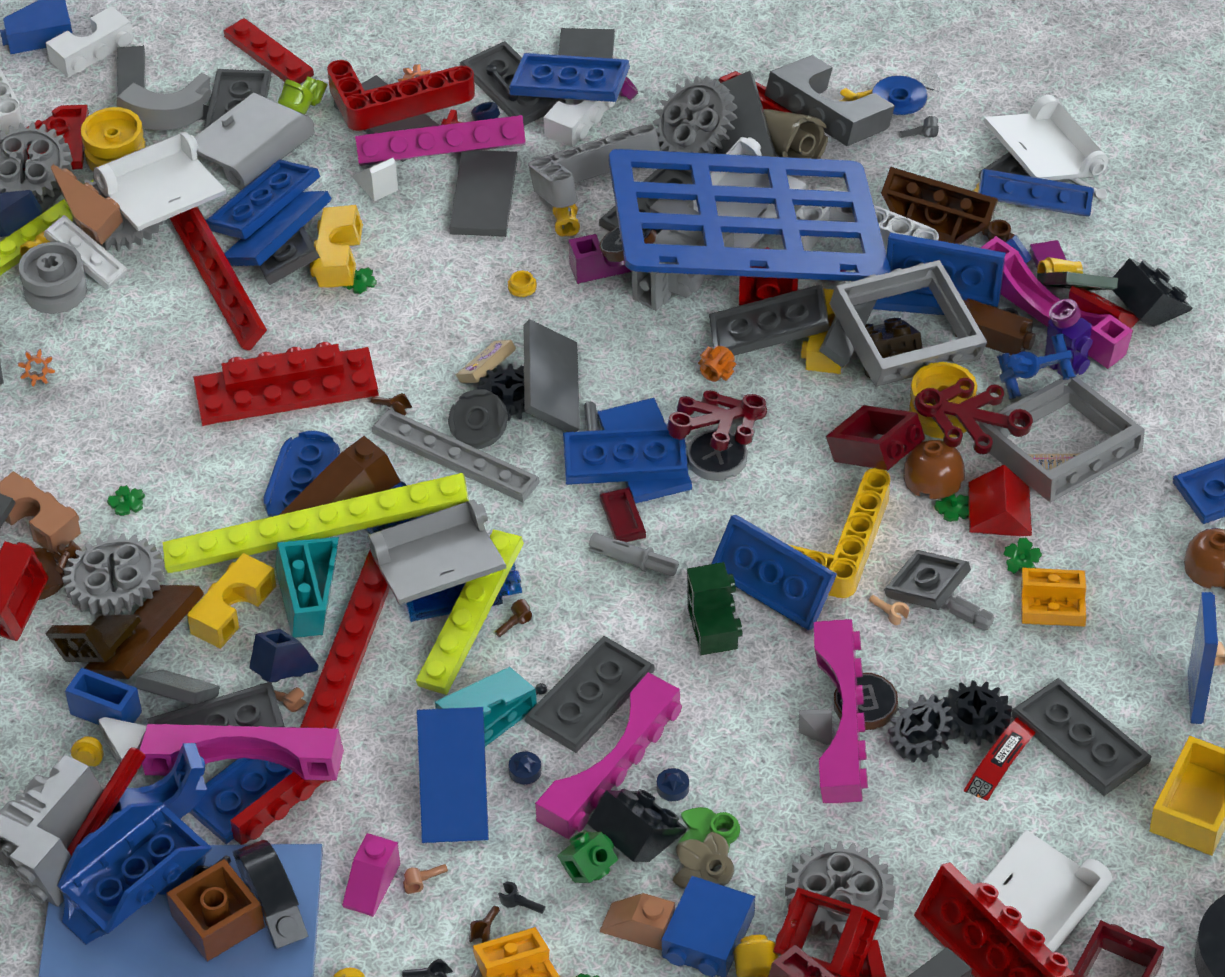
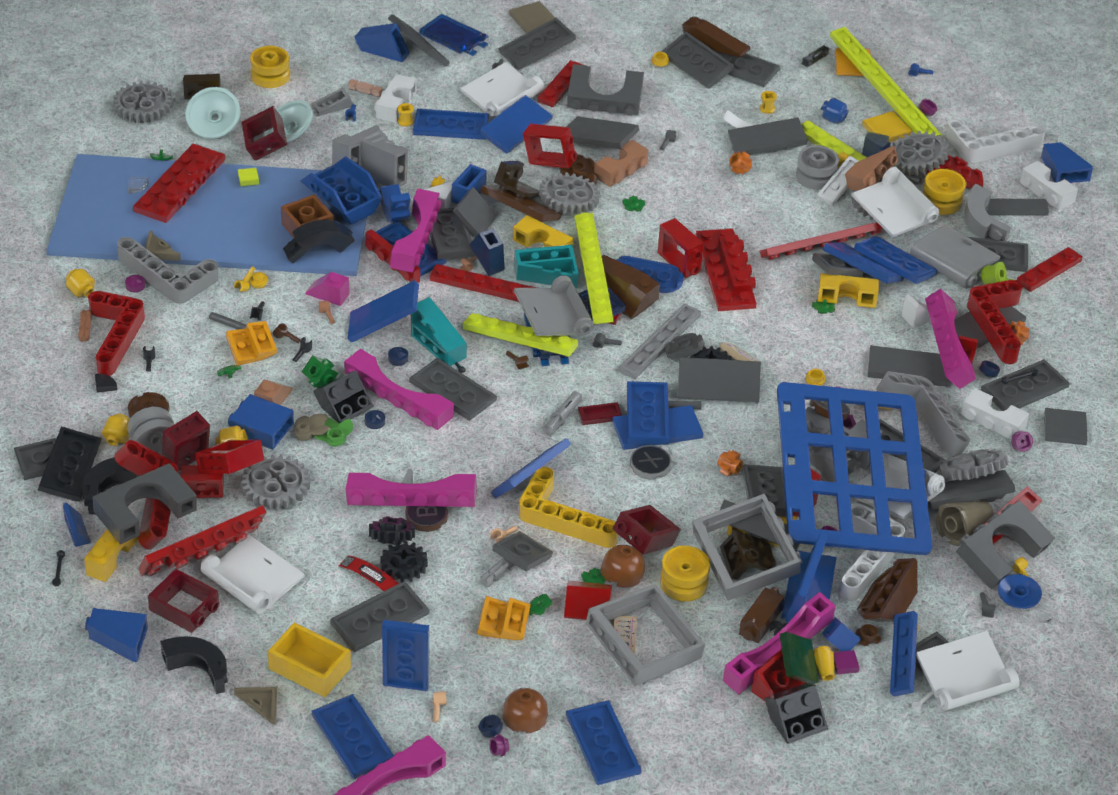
camera: 90 degrees right, 5 degrees down
(110, 796) = (392, 179): red axle -> none
(256, 409) = (673, 234): none -> red window
(398, 403) = (705, 314): reddish brown hand -> none
(569, 77) = (1016, 401): blue tile -> none
(712, 608) = (503, 441): dark green brick -> none
(751, 407) = (676, 459): dark red plant -> none
(968, 413) = (661, 549): dark red plant -> none
(1028, 364) = (708, 617): blue axle -> none
(1065, 313) = (739, 622): magenta tile -> none
(1077, 340) = (733, 641): dark purple brick -> none

